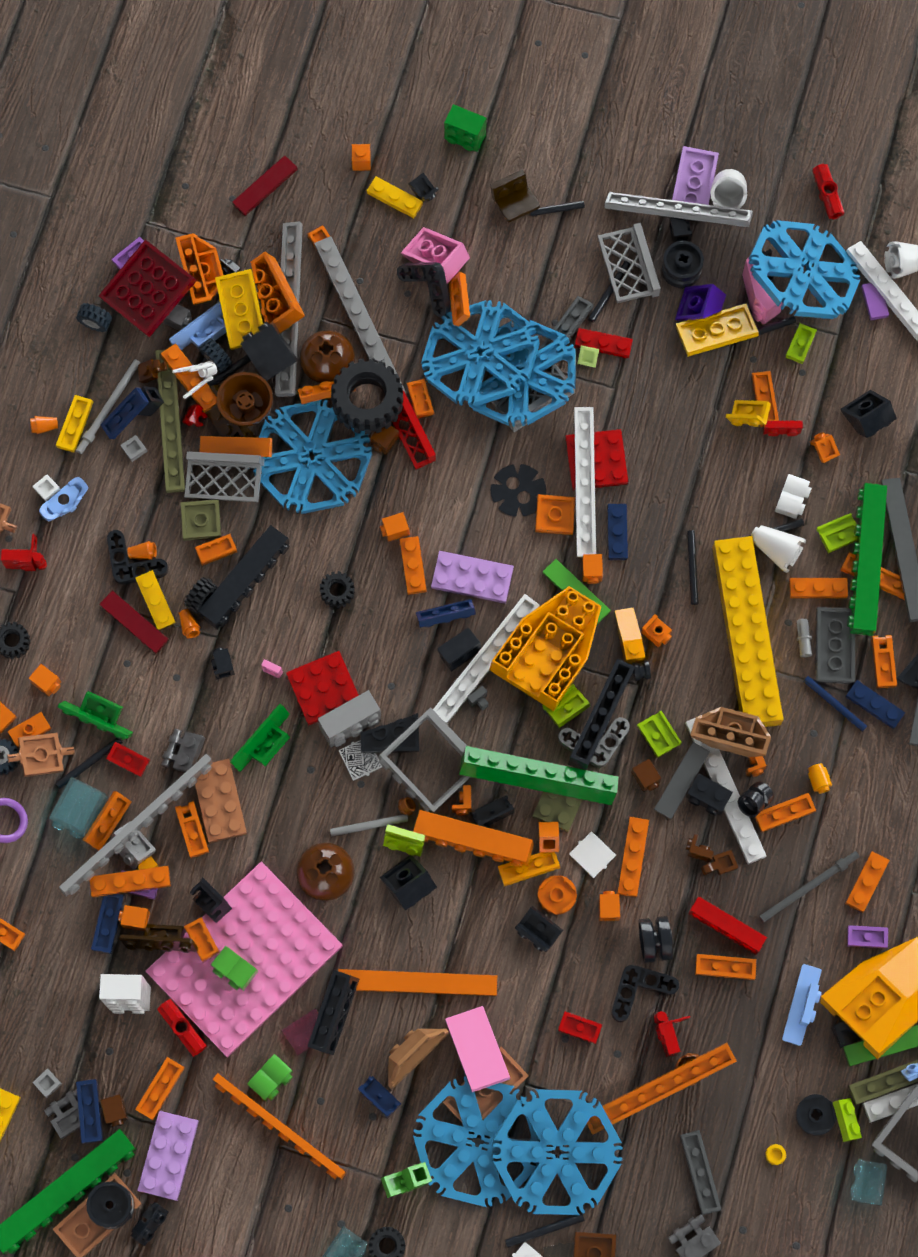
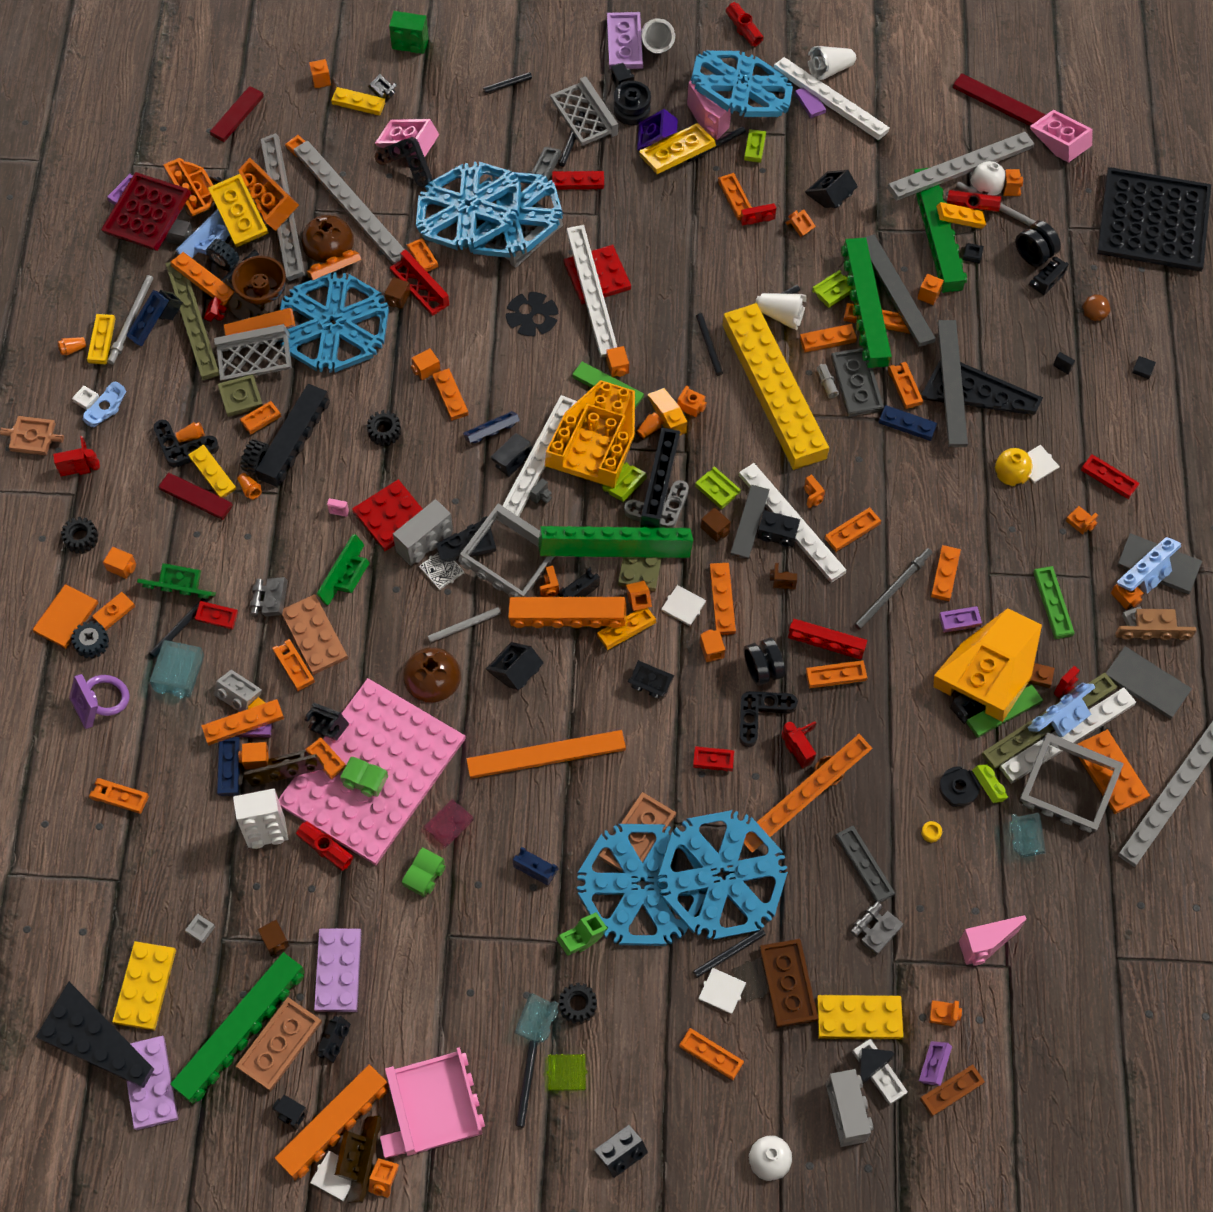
camera: 15 degrees left, 10 degrees down
(40, 754) = (129, 628): nougat plate -> none
(65, 1122) = (232, 957): flat silver plate -> none
(89, 1111) = (249, 942): dark blue plate -> none
(94, 317) = (100, 245): black wheel -> none
(107, 820) = (207, 674): orange plate -> none
(122, 1207) = (286, 1013): black wheel -> none
(130, 832) = (234, 671): light grey plate -> none
(133, 448) = (162, 348): light grey plate -> none
(149, 370) = (163, 279): reddish brown plate -> none
(160, 1088) = (315, 907): orange plate -> none
(204, 370) = (215, 266): white plant -> none
(222, 663) = (289, 513): black brick -> none
(268, 350) = (271, 236): black brick -> none
(285, 1133) = (449, 918): orange plate -> none
(333, 1012) = (471, 796): black fence -> none
(367, 373) = (373, 237): black tyre -> none
(404, 840) = (501, 628): lime plate -> none
(406, 806) = (496, 599): dark orange plate -> none
(412, 1052) = (558, 816): medium nougat wedge -> none
(459, 299) = (438, 166): orange plate -> none
(472, 577) = (508, 393): lavender plate -> none
(477, 1049) = (620, 798): bright pink tile -> none
(514, 196) = (465, 78): dark brown bracket -> none
(555, 514) = (571, 326): orange tile -> none
(557, 895) = (659, 647): orange tile -> none
(588, 356) = (567, 192): yellowish green tile -> none
(607, 648) = (651, 424): none -> orange cone
(617, 532) = (632, 329): dark blue plate -> none
(641, 670) = (687, 437): black wheel -> none
(678, 209) = (617, 59): light grey tile -> none
(722, 863) = (806, 584): reddish brown plate -> none
(732, 732) = (786, 467): medium nougat wedge -> none
(749, 412) = (725, 207): yellow bracket -> none
(755, 799) = (823, 521): black wheel -> none
(793, 496) = (783, 267): white brick -> none
(802, 1005) = (918, 692): light blue bracket -> none
(819, 778) = (876, 493): light orange brick -> none
(836, 704) = (868, 428): dark blue bar -> none

